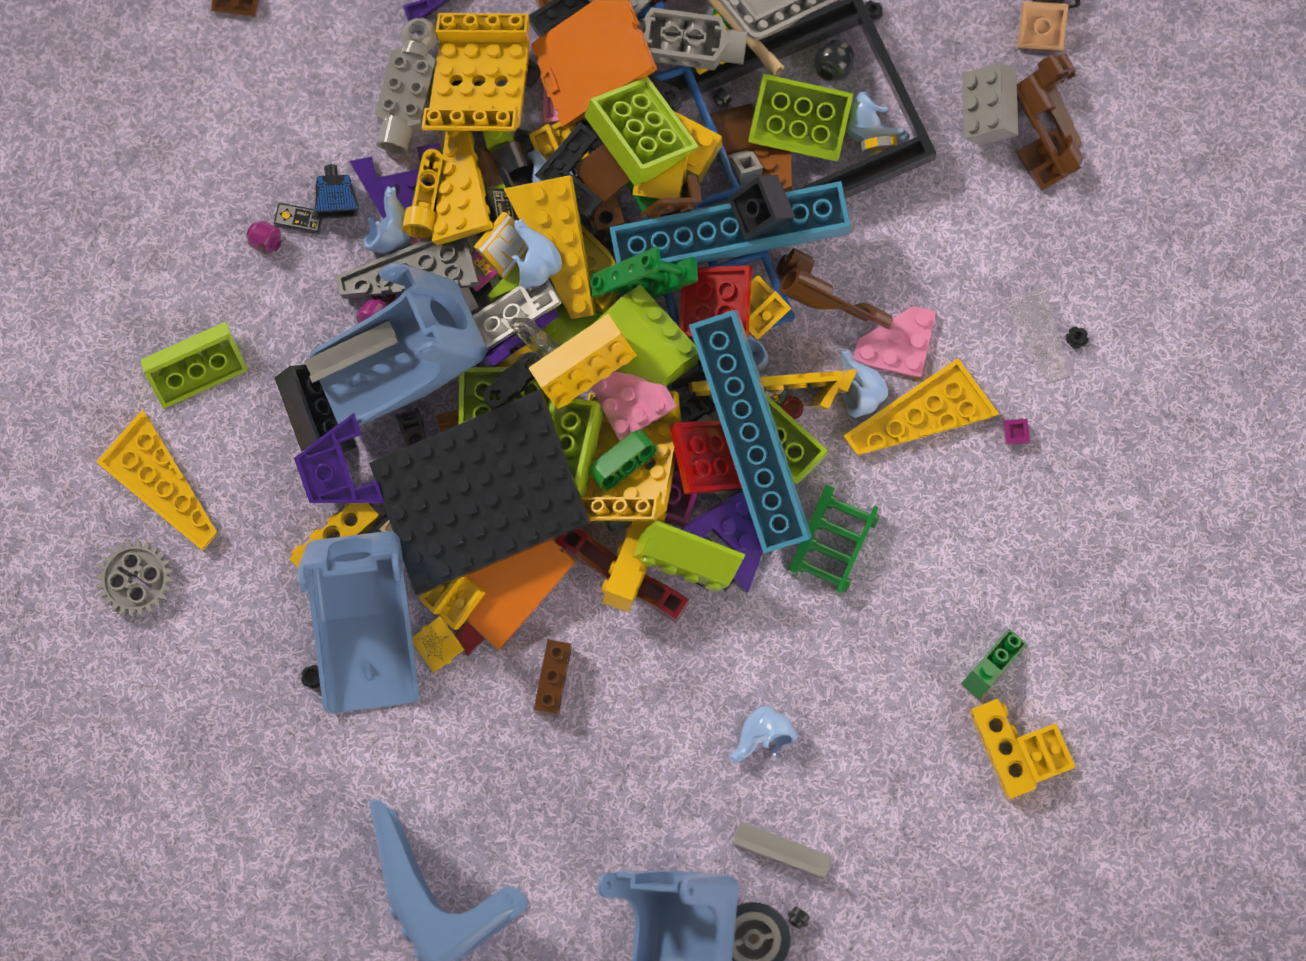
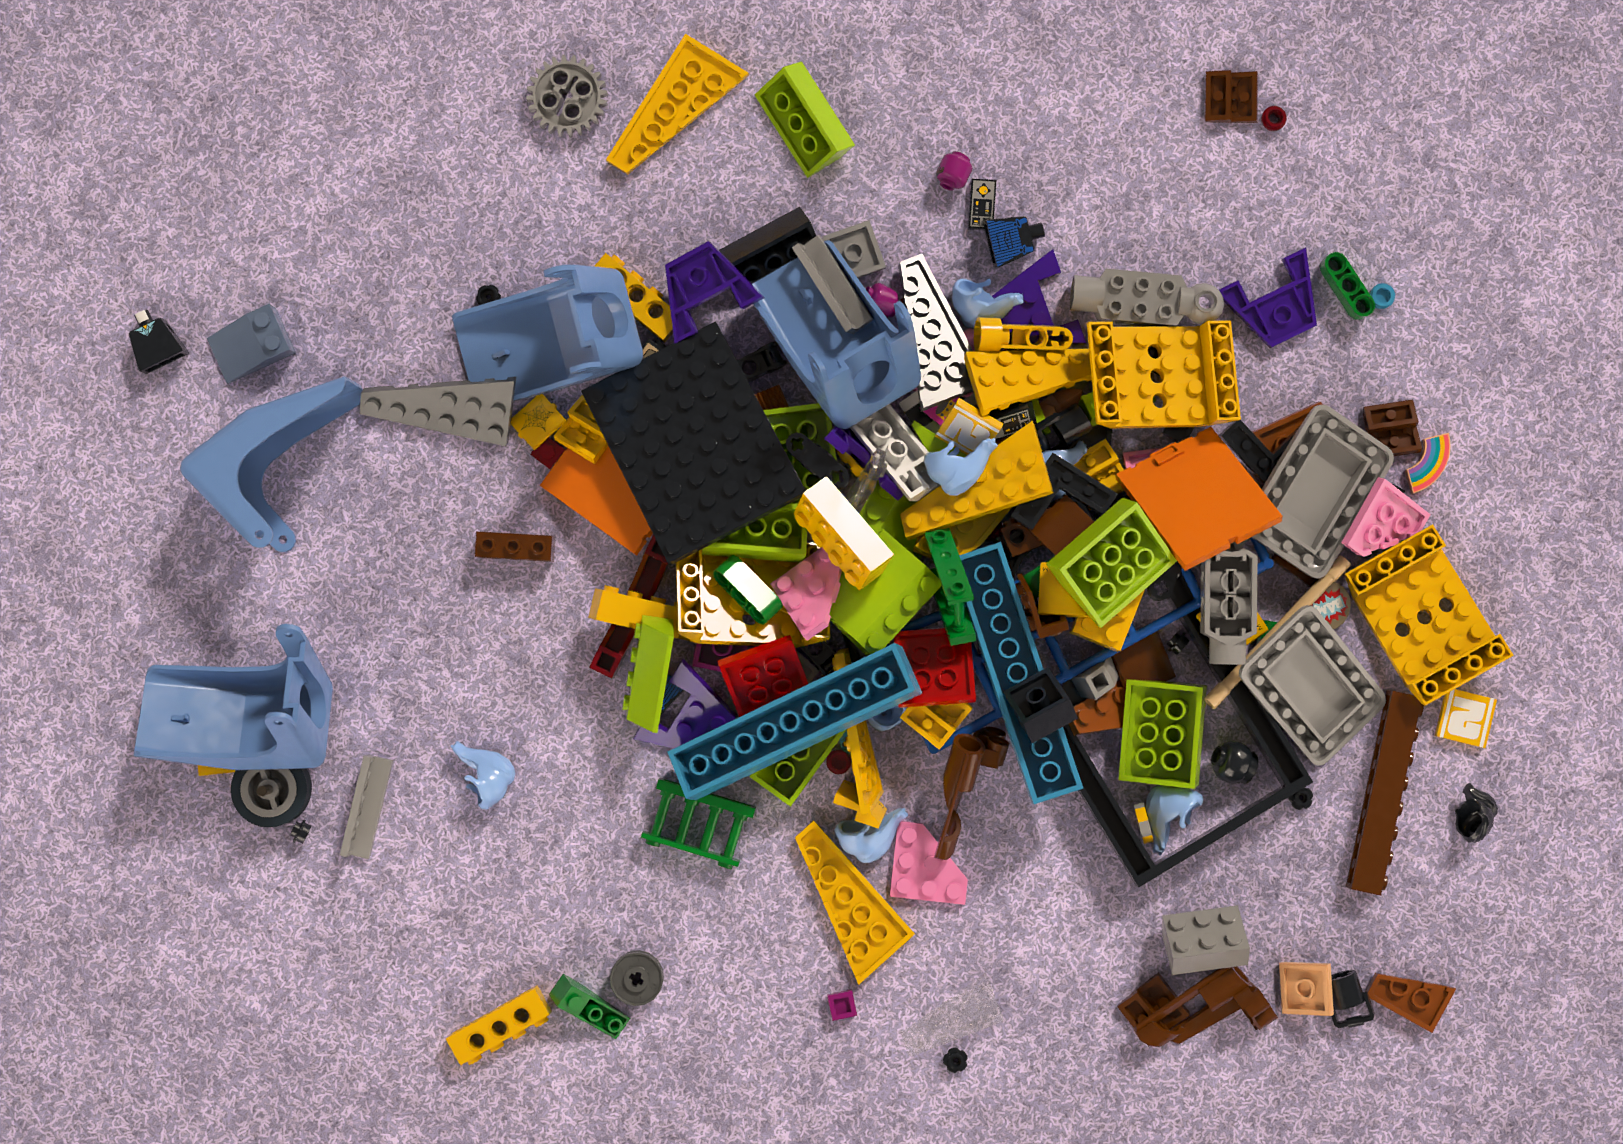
camera: 75 degrees right, 10 degrees up
(320, 328) = (858, 248): none -> light grey plate
(322, 909) = (251, 343): none -> sand blue slope
(413, 719) = (453, 407): none -> wing
(966, 602) = (644, 991): none -> dark grey wheel
(1045, 753) = (499, 1070): yellow slope -> none

